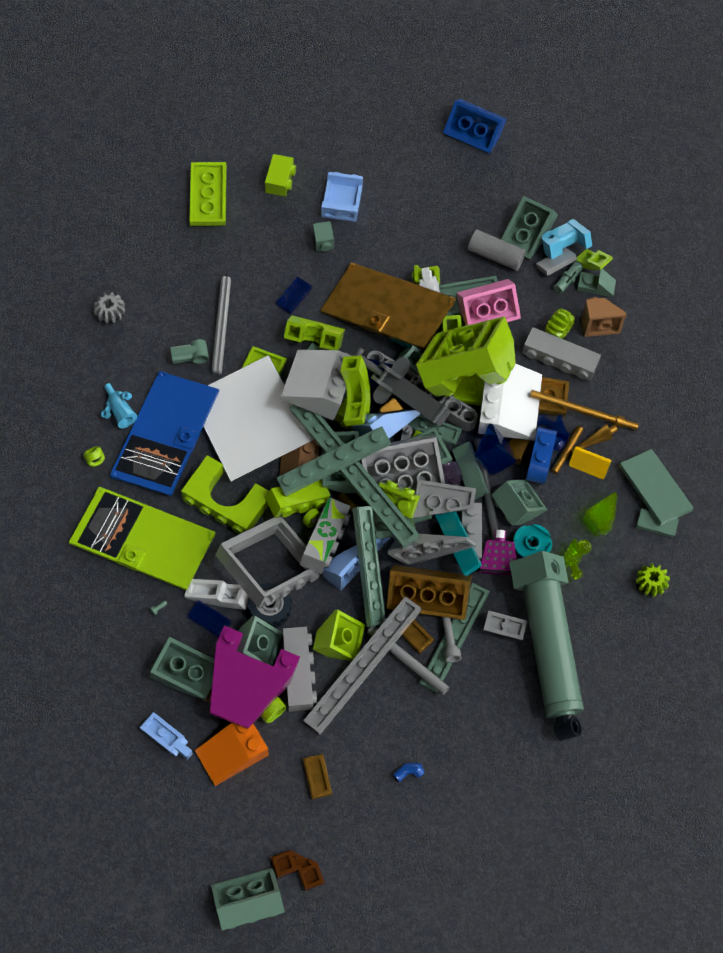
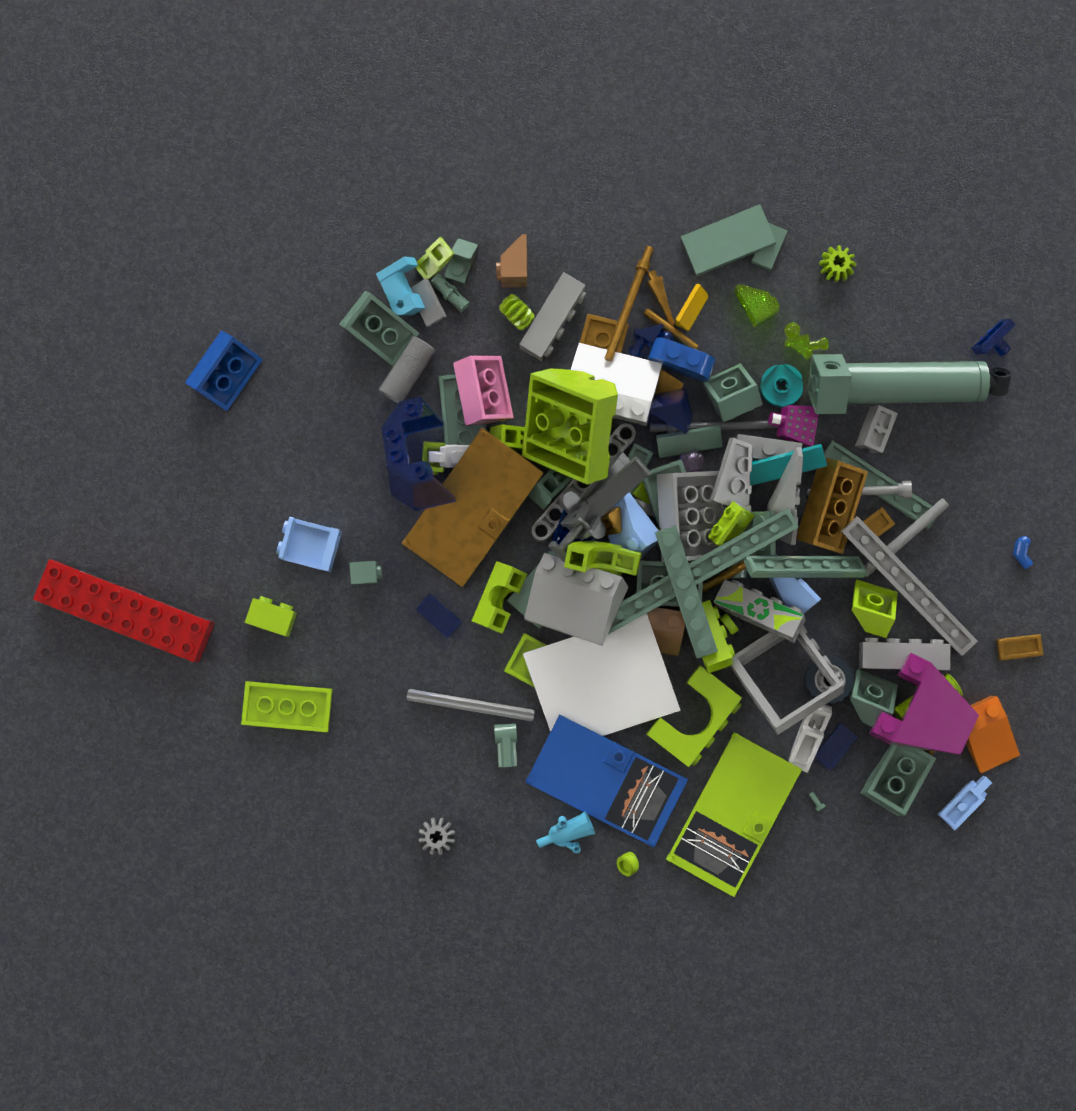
camera: 75 degrees left, 20 degrees up
(272, 77) = (123, 611): none -> red piece
(427, 238) = (415, 481): none -> clear blue windscreen
(608, 726) = (994, 339): none -> clear blue tile

